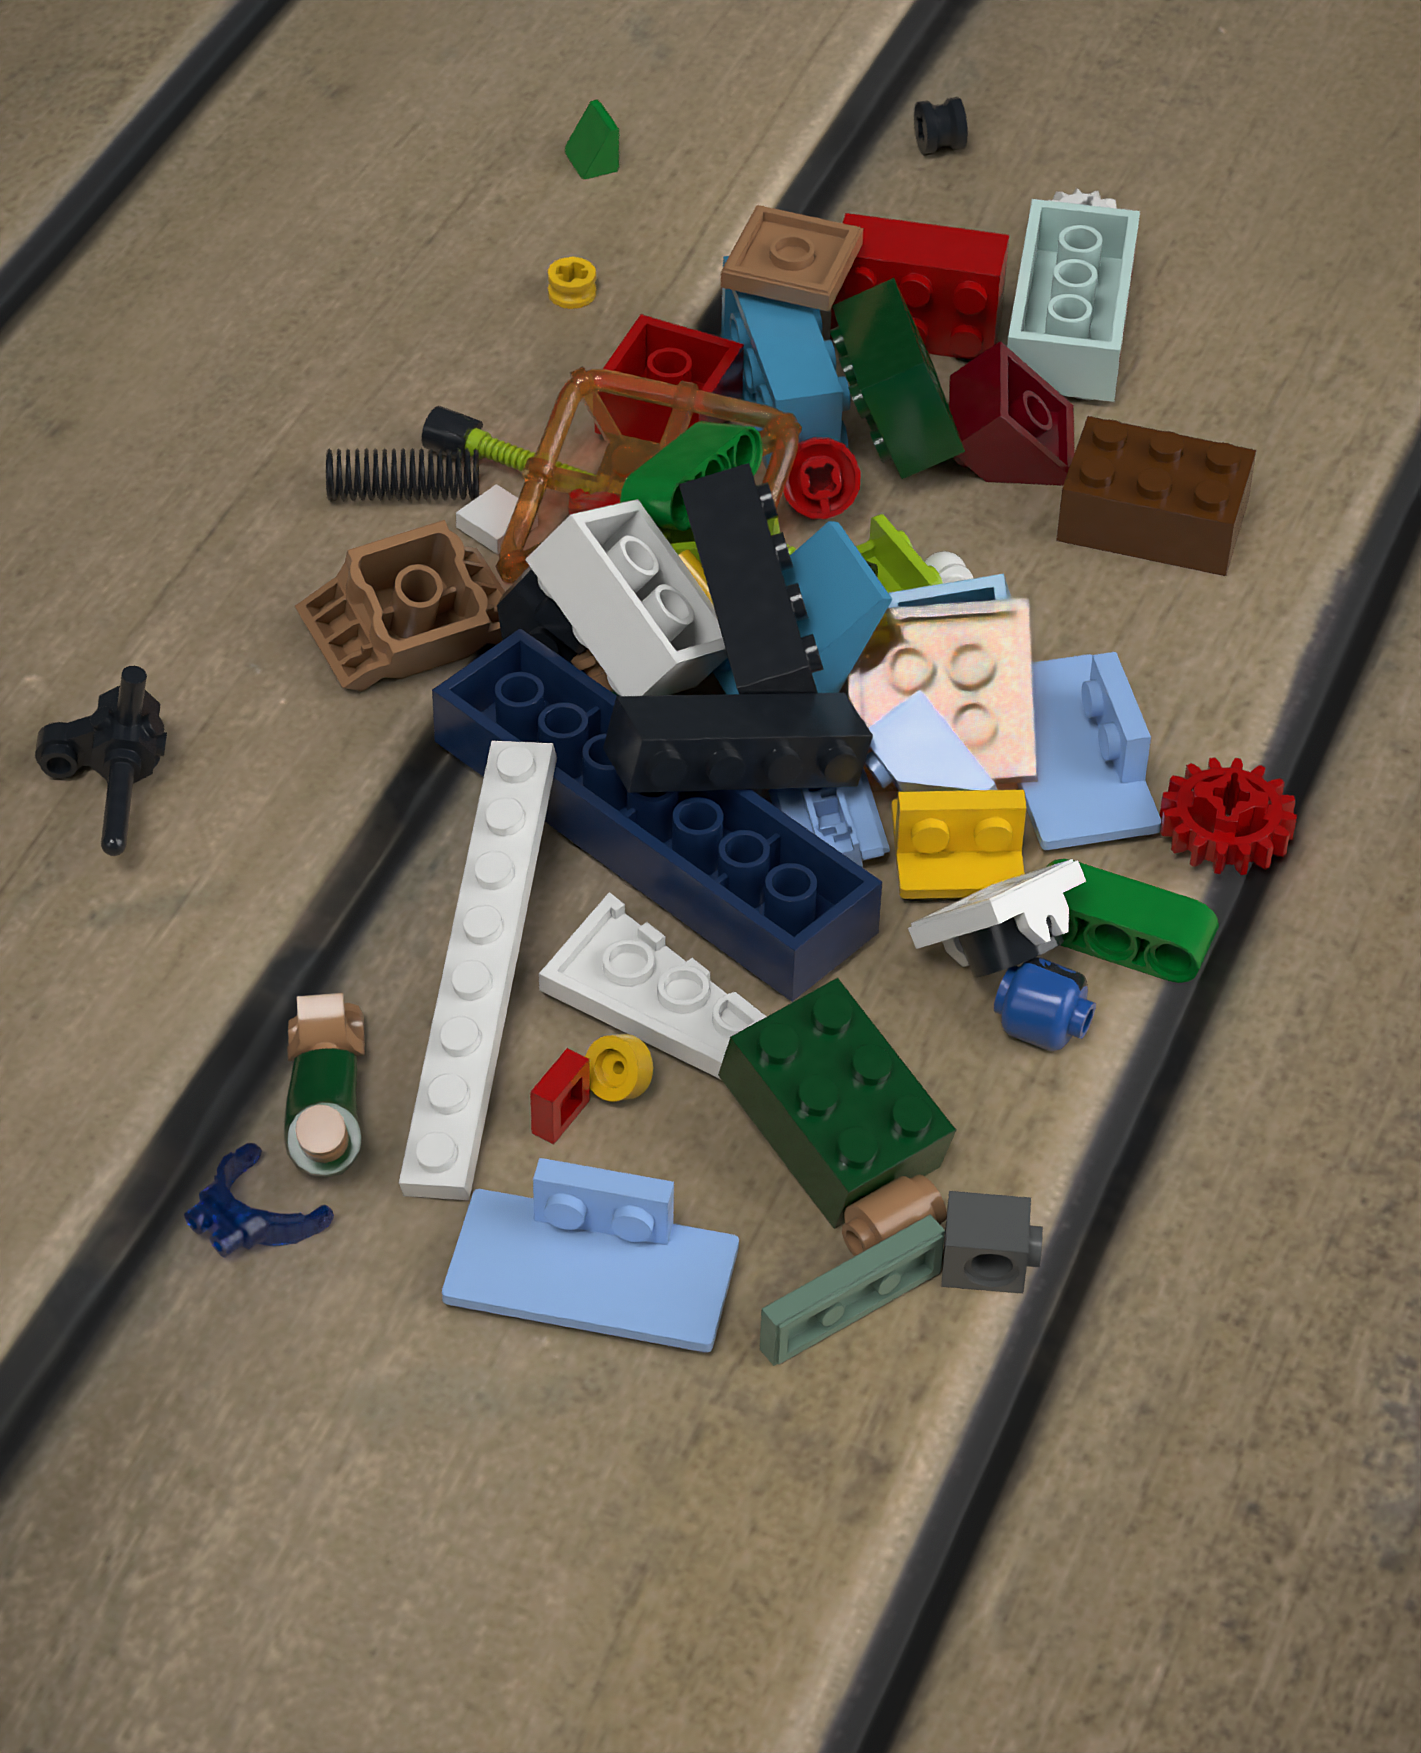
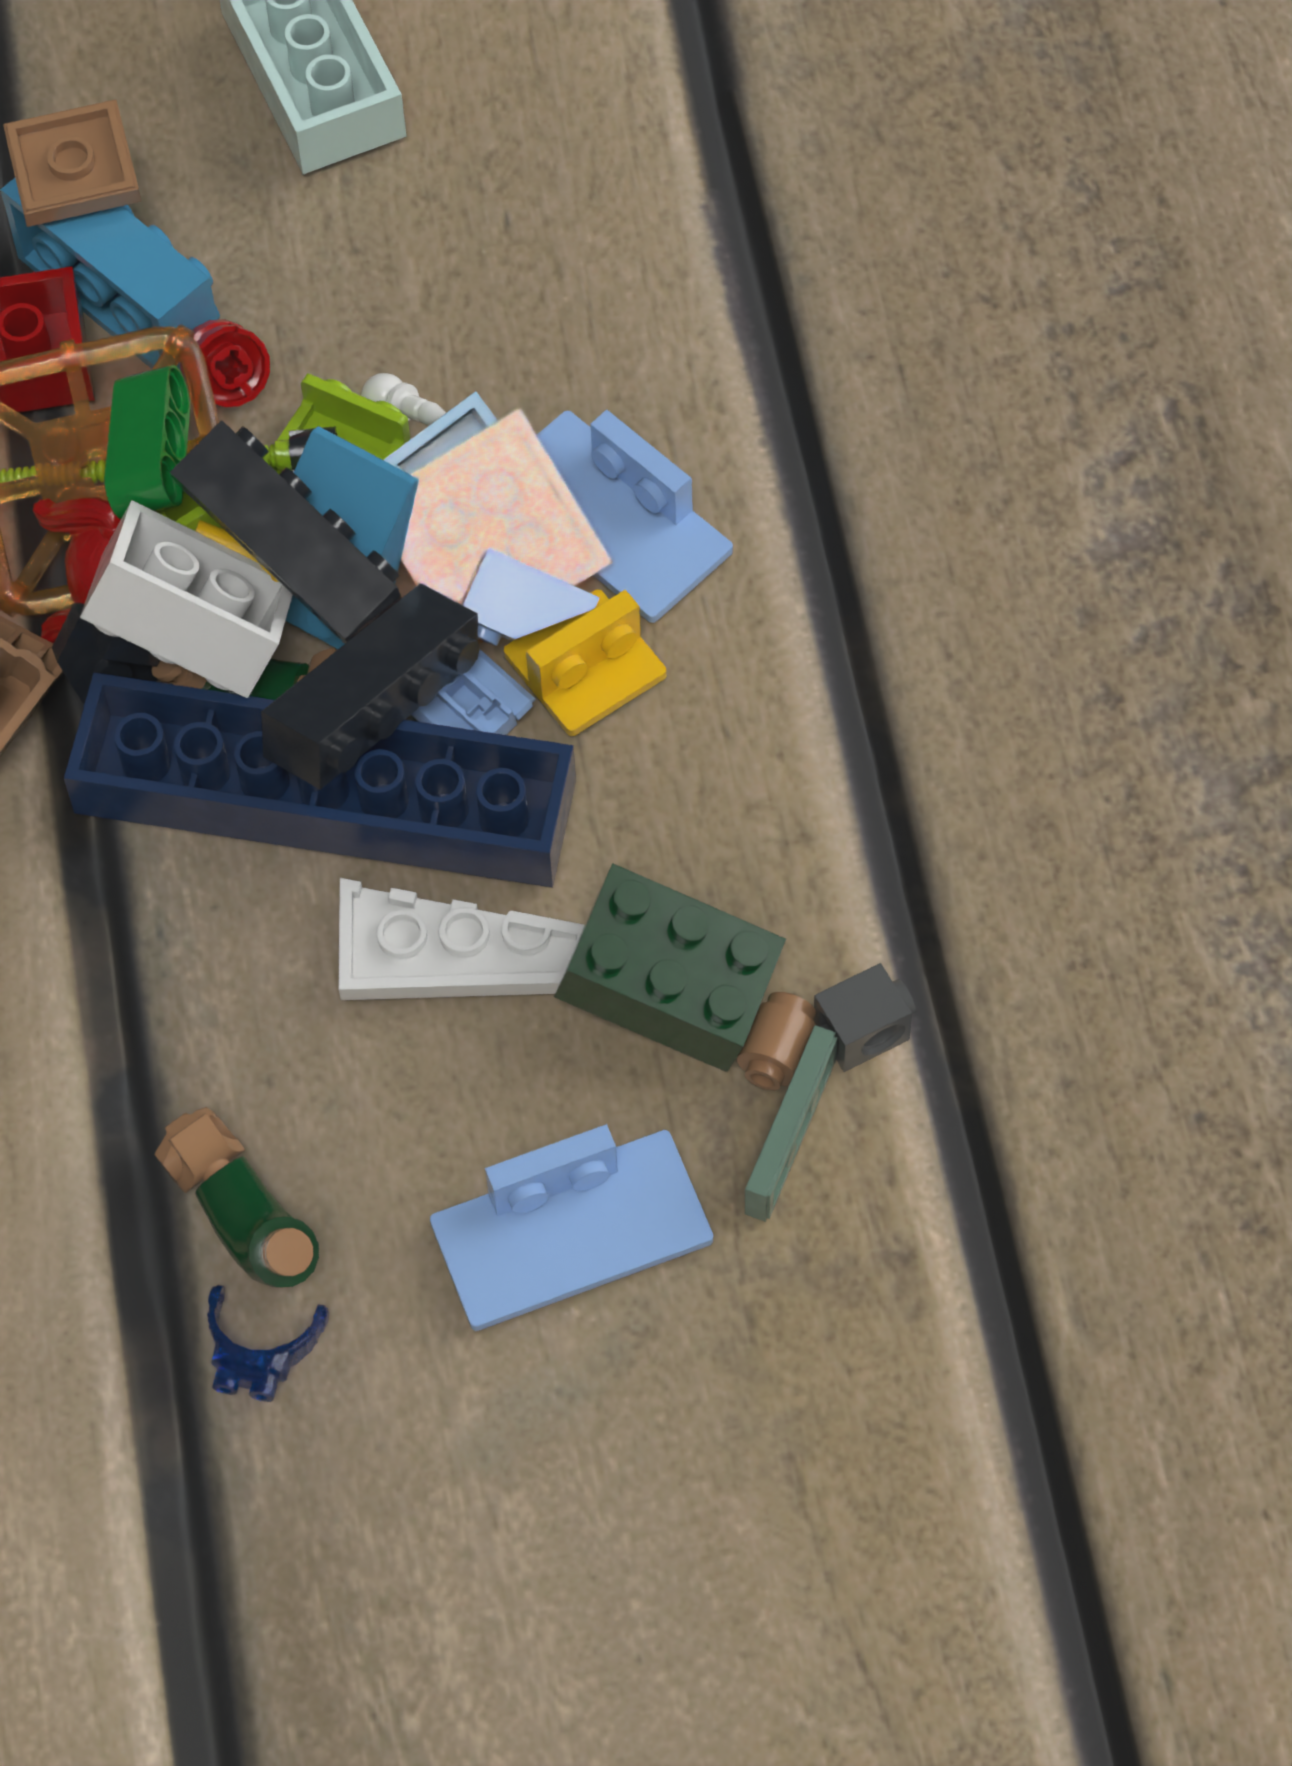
camera: 30 degrees left, 15 degrees up
(478, 972) = (293, 1016): white plate -> none
(560, 1096) = (437, 1091): red tile -> none
(619, 1067) = (465, 1036): yellow tile -> none
(894, 380) = (232, 228): dark green brick -> none
(945, 275) = (185, 109): red brick -> none
(1004, 921) = (686, 718): white piece -> none
(1011, 421) = (339, 211): dark red slope -> none
(1044, 1004) = (760, 773): blue head -> none
(1138, 925) = (764, 657): green beam -> none
(1156, 495) = (516, 220): reddish brown brick -> none
(1197, 820) = (786, 502): red gear -> none

